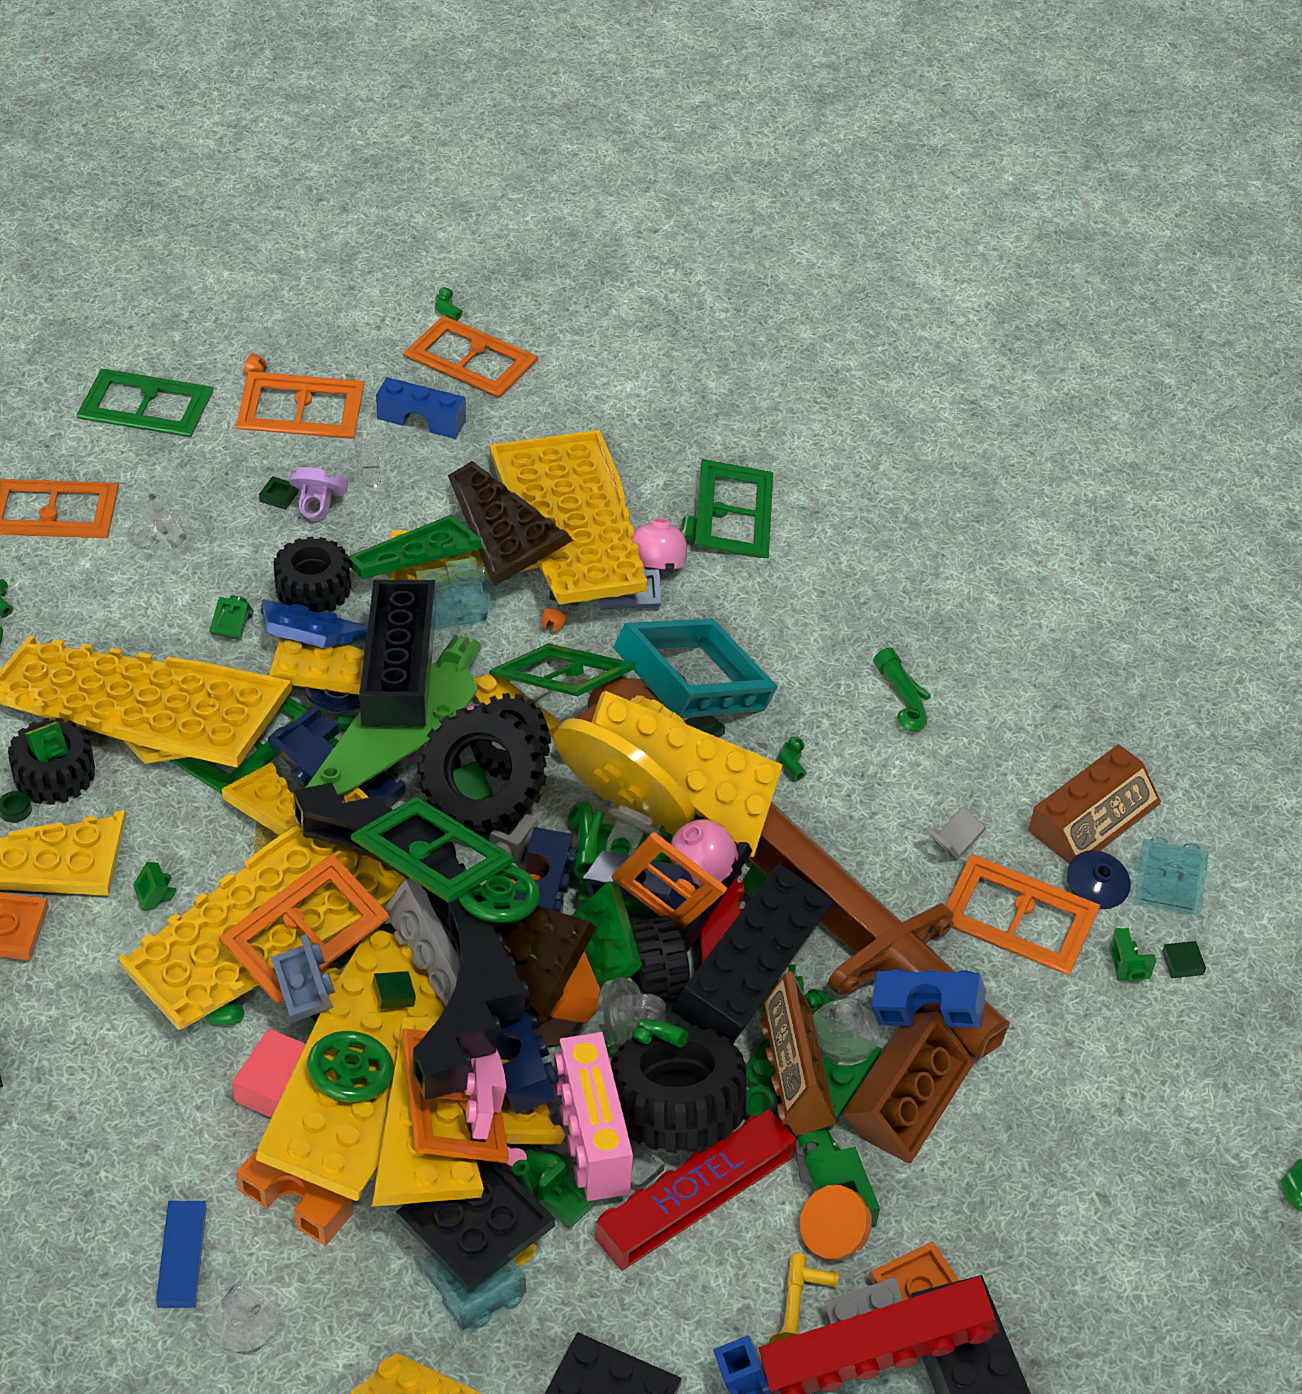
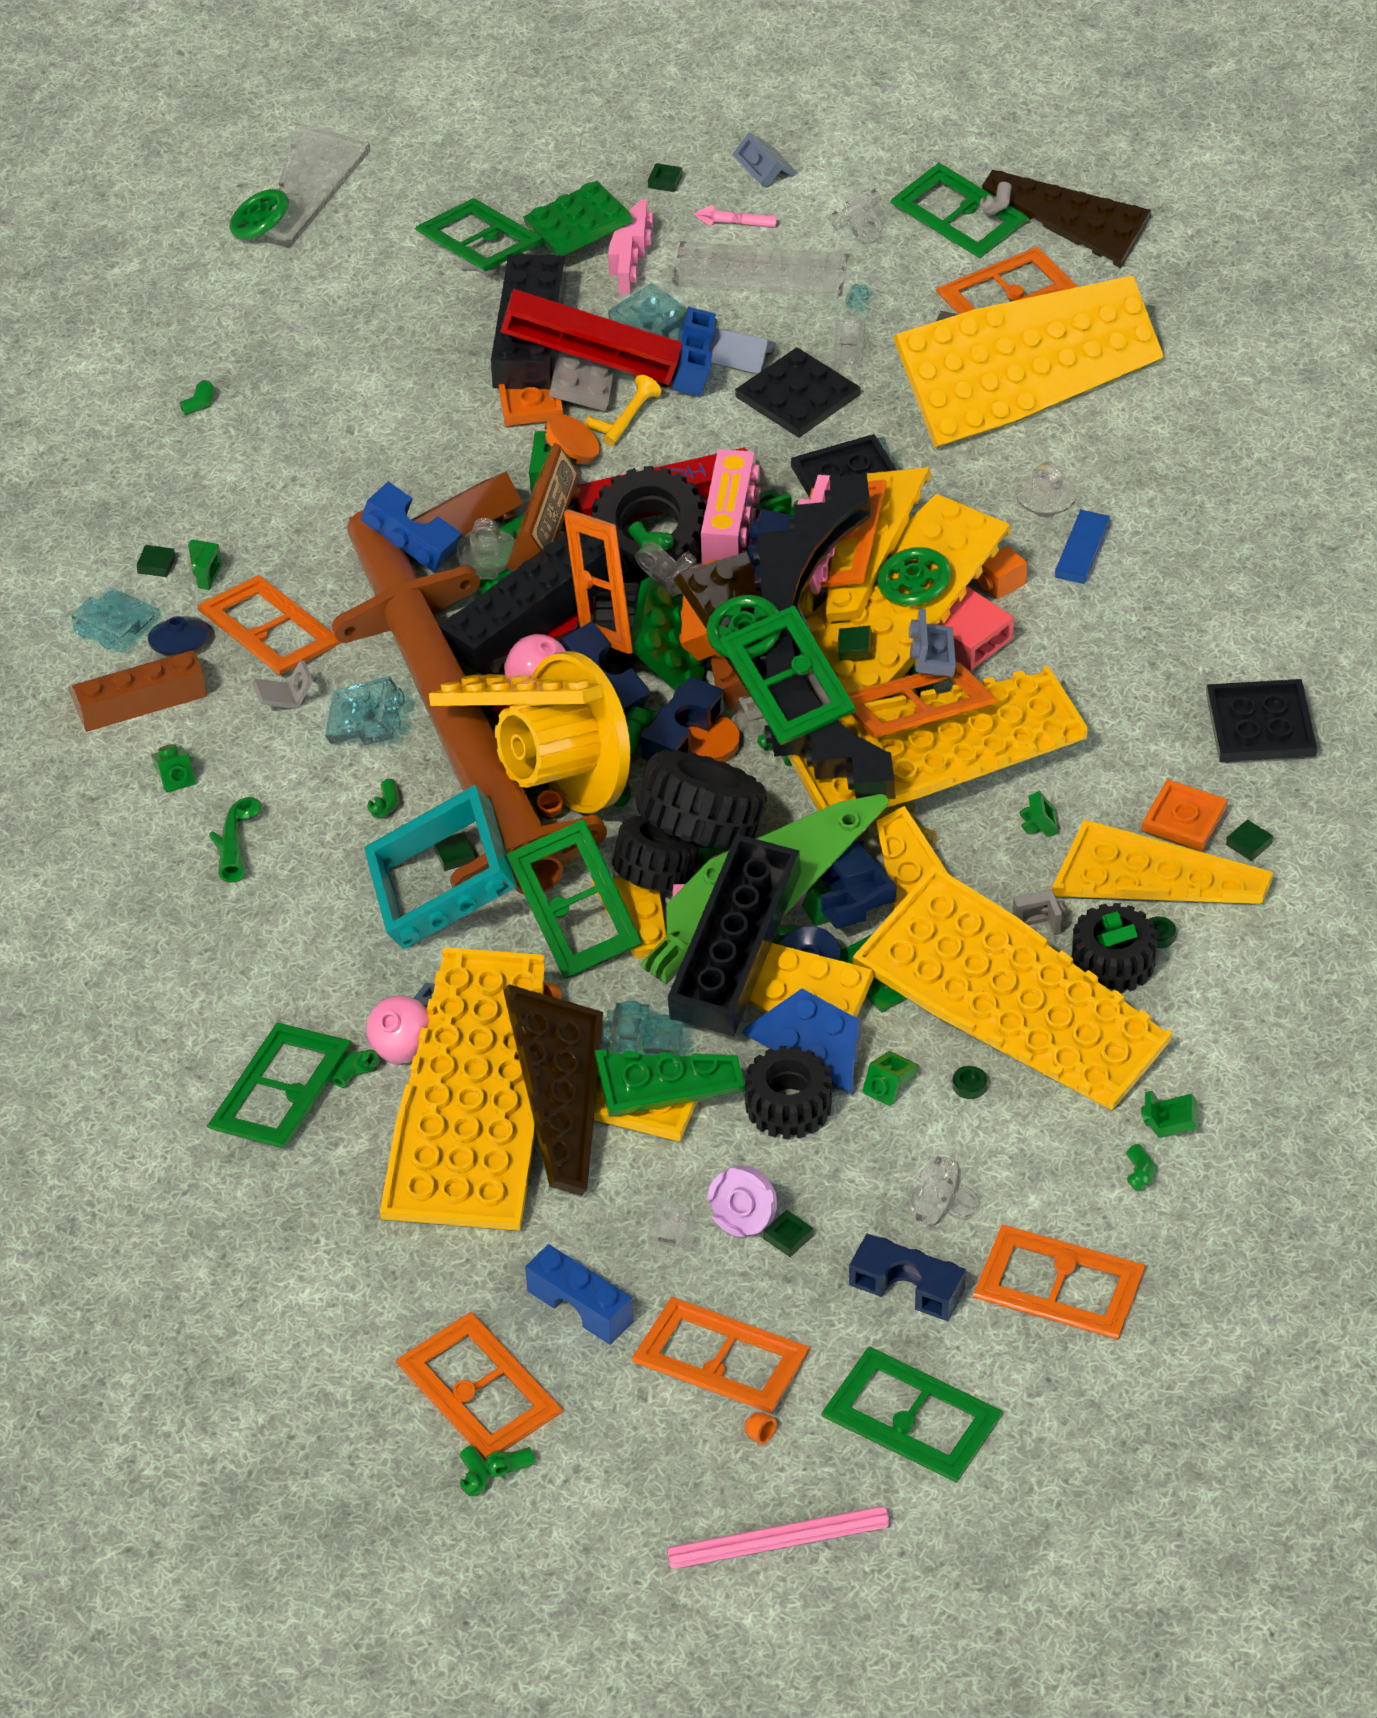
camera: 155 degrees left, 0 degrees up
(133, 789) = (1039, 908): none -> light grey bracket
(162, 636) = (969, 1082): none -> dark green tile
(193, 478) = (882, 1262): none -> dark blue arch
(218, 312) = (777, 1537): none -> bright pink axle
(429, 312) = (503, 1462): none -> green arm
(861, 829) = (365, 712): none -> clear light blue plate
(1006, 740) = (174, 767): none -> green bracket

